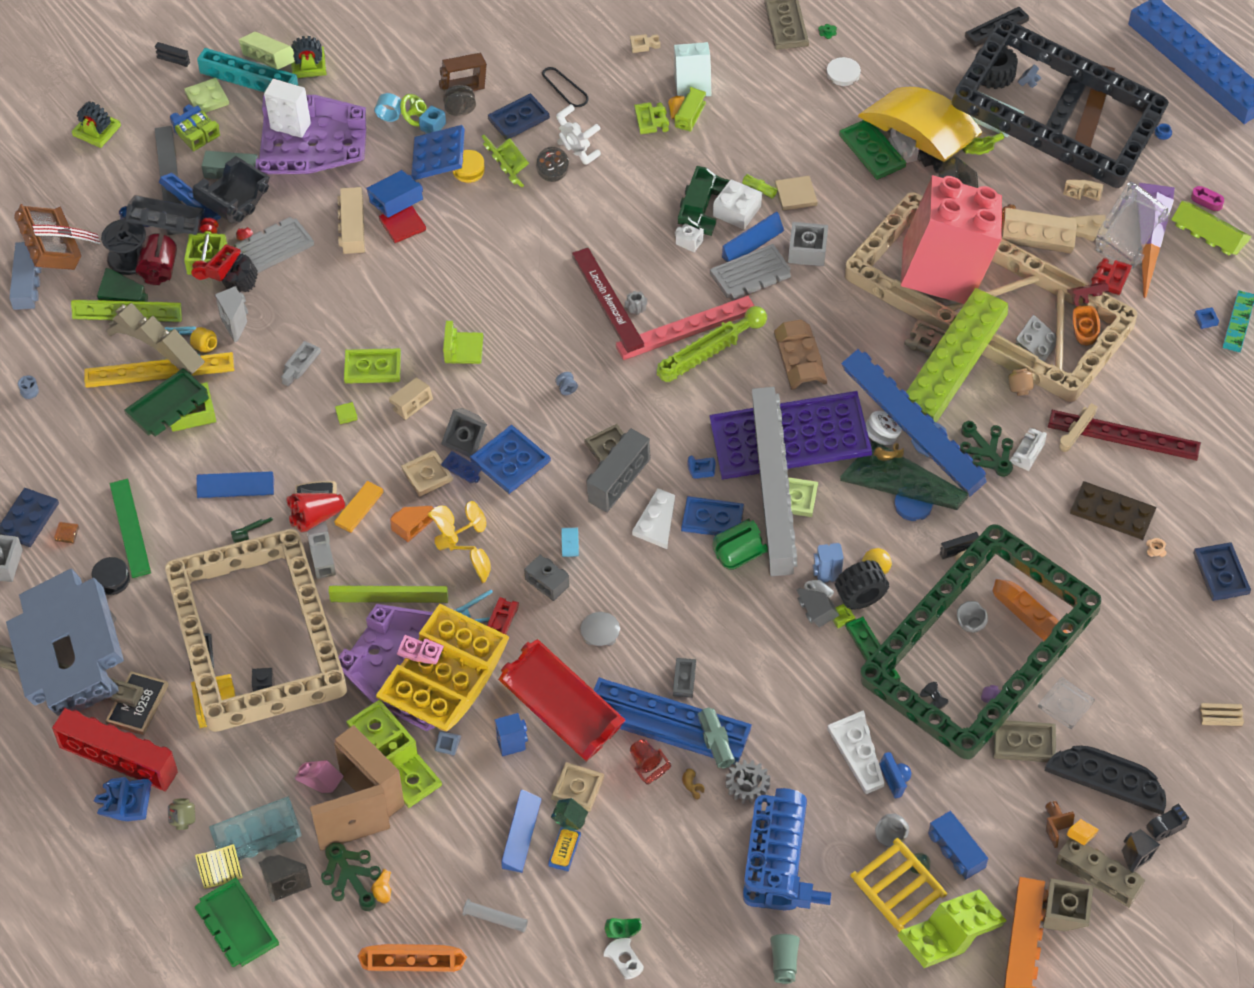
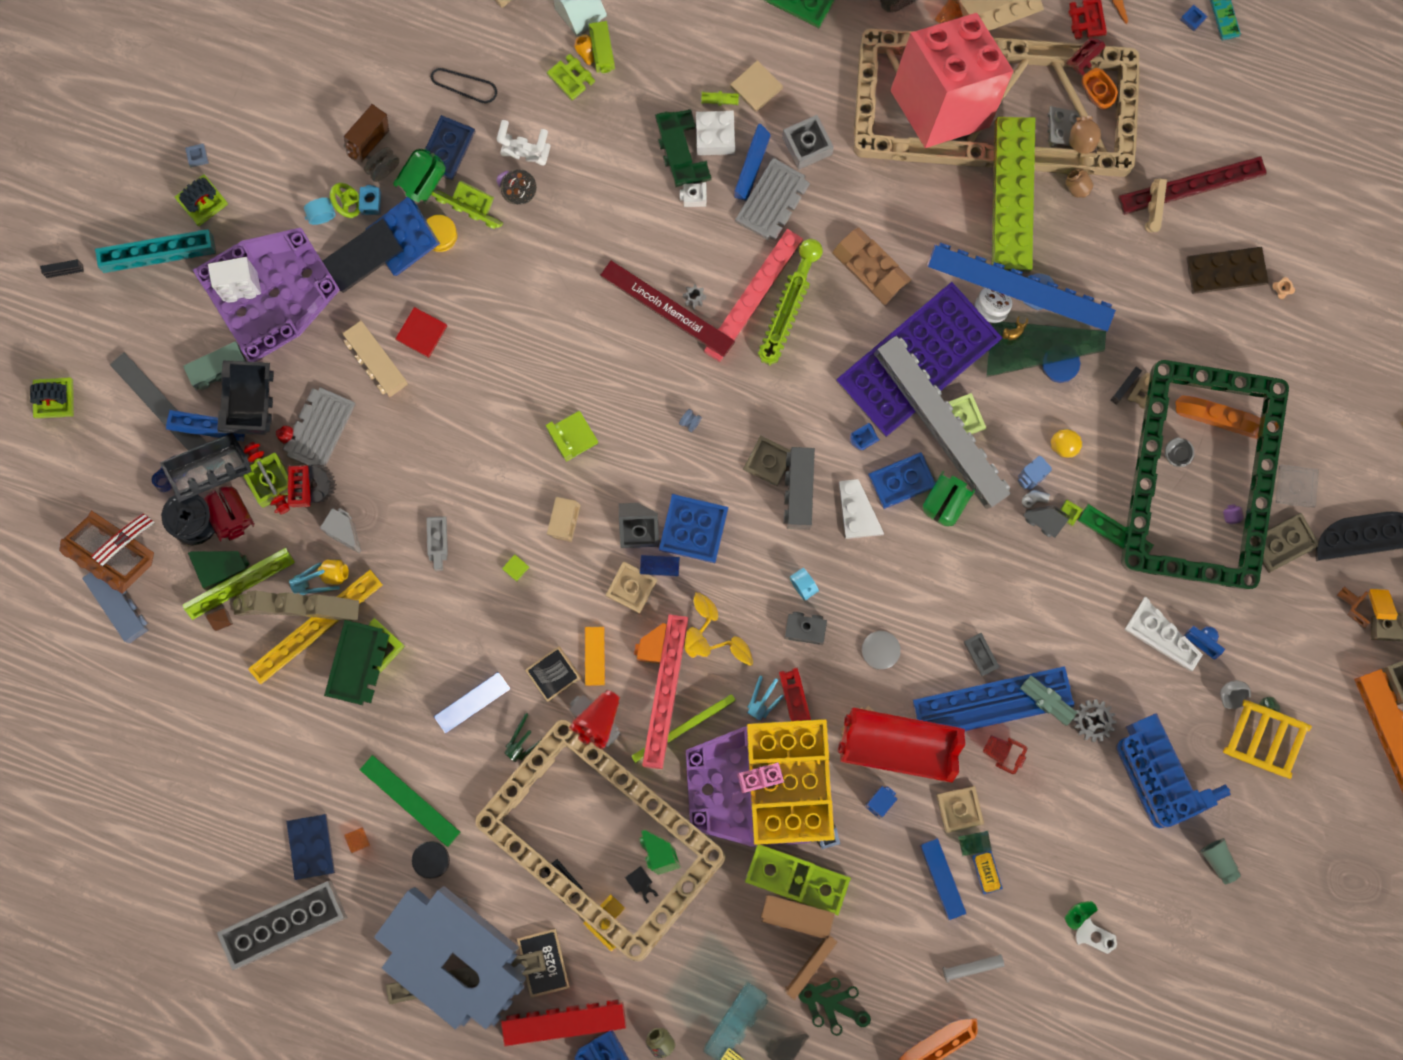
camera: 35 degrees left, 25 degrees up
(30, 383) = (206, 715): sand blue wheel -> none
(92, 326) = (219, 619): none -> reddish brown slope
(193, 126) = (147, 341): lime hips -> none
(207, 95) = (130, 296): yellowish green plate -> none
(266, 50) = (157, 215): yellowish green brick -> none
(289, 645) = (661, 854): none -> green slope
(319, 776) = (746, 936): bright pink slope -> none
(328, 32) = (197, 155): none -> sand blue tile
(372, 365) = (505, 505): lime plate -> none
(381, 888) = (866, 1001): light orange animal -> none
(386, 560) = (665, 692): none -> coral plate
(395, 193) = (395, 306): blue brick -> none
(398, 150) = (363, 255): none -> black tile
(477, 110) = (420, 175): none -> green cylinder
(687, 779) = (1045, 749): pearl gold arm -> none
(862, 584) = (1076, 480): black tyre -> none
(927, 333) = (971, 177): dark tan plate -> none
(931, 690) = (1197, 548): black piece -> none
(951, 928) = (1335, 756): lime bracket -> none
(957, 845) = (1291, 675): blue brick -> none
(987, 450) = (1091, 270): dark green plant -> none
(1029, 449) = (1124, 250): white hinge -> none
(1047, 344) = (1084, 135): none -> medium nougat helmet
(1222, 571) = (1349, 280): dark blue plate -> none

